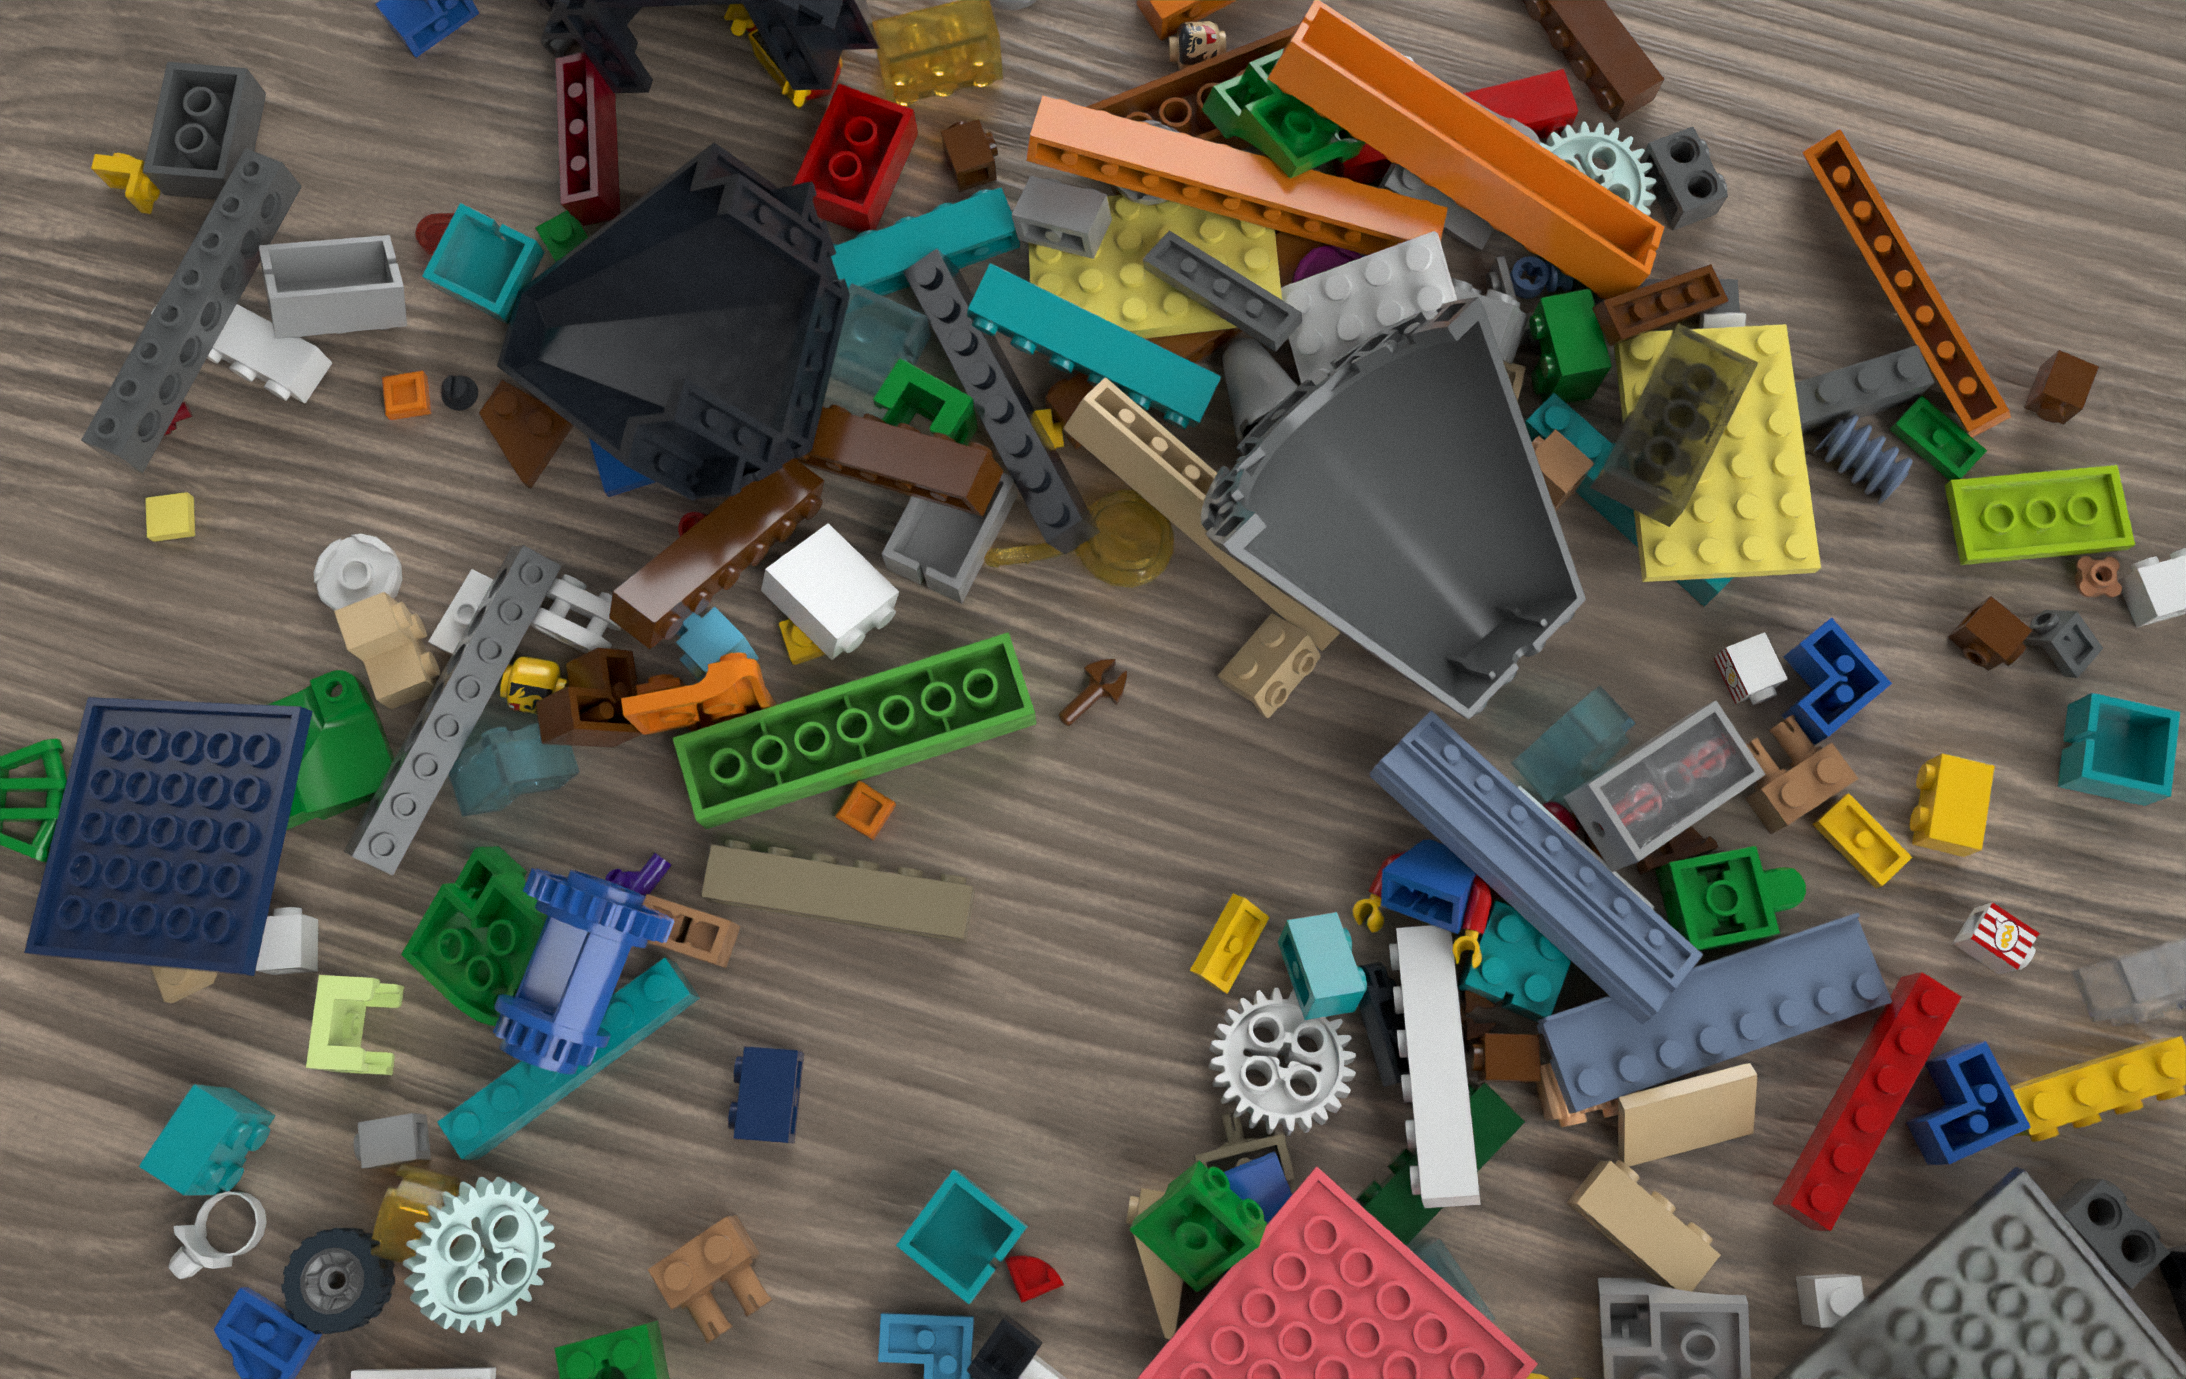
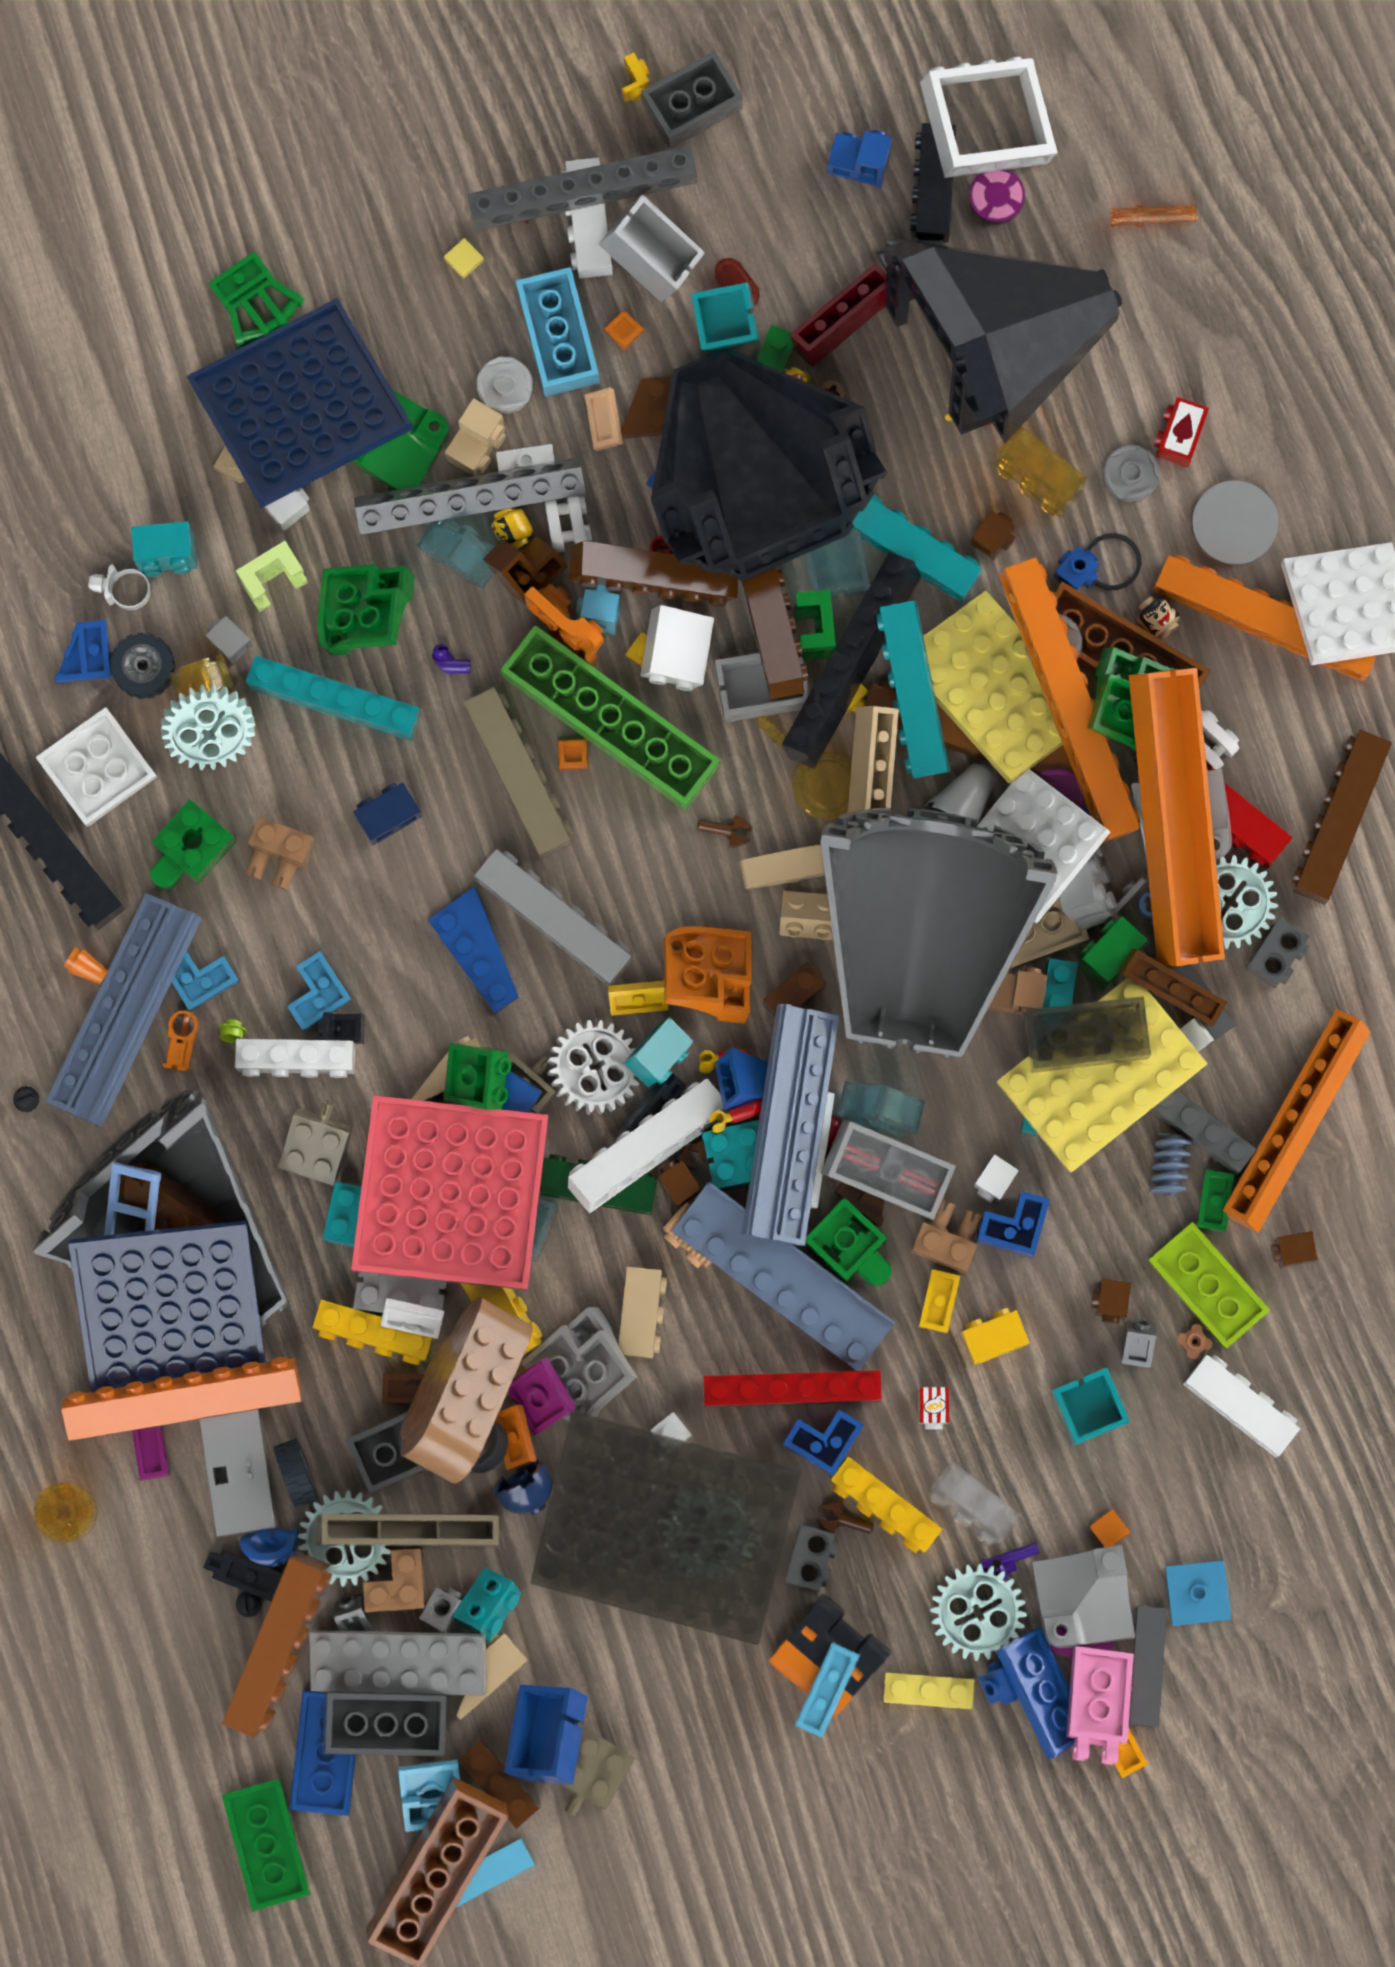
camera: 55 degrees right, 5 degrees up
(343, 465) = (557, 331): none -> medium azure brick
(459, 392) = (646, 358): black piece -> none
(490, 489) = (603, 419): none -> light nougat tile
(573, 968) = (416, 671): blue piece -> none
(696, 932) = (440, 708): medium nougat brick -> none
(857, 157) = (940, 474): red brick -> none
(961, 1236) = (387, 963): teal piece -> none
(1015, 1104) = (473, 944): none -> blue wing
(1032, 1276) = (392, 1016): red tile -> none
(1053, 977) = (553, 918): none -> light grey brick
(1062, 216) = (985, 616): light grey brick -> none
(1080, 82) = (1075, 578): none -> blue brick
(1095, 25) = (1136, 550): none -> black piece
(1197, 639) = (783, 867): none -> tan slope
(1222, 290) = (996, 737): dark grey plate -> none
(1259, 831) = (709, 971): none -> orange slope
(1356, 746) = (796, 989): none -> reddish brown brick
(1686, 1114) = (714, 1295): tan tile -> none
(2071, 1154) = (844, 1520): none -> reddish brown bar

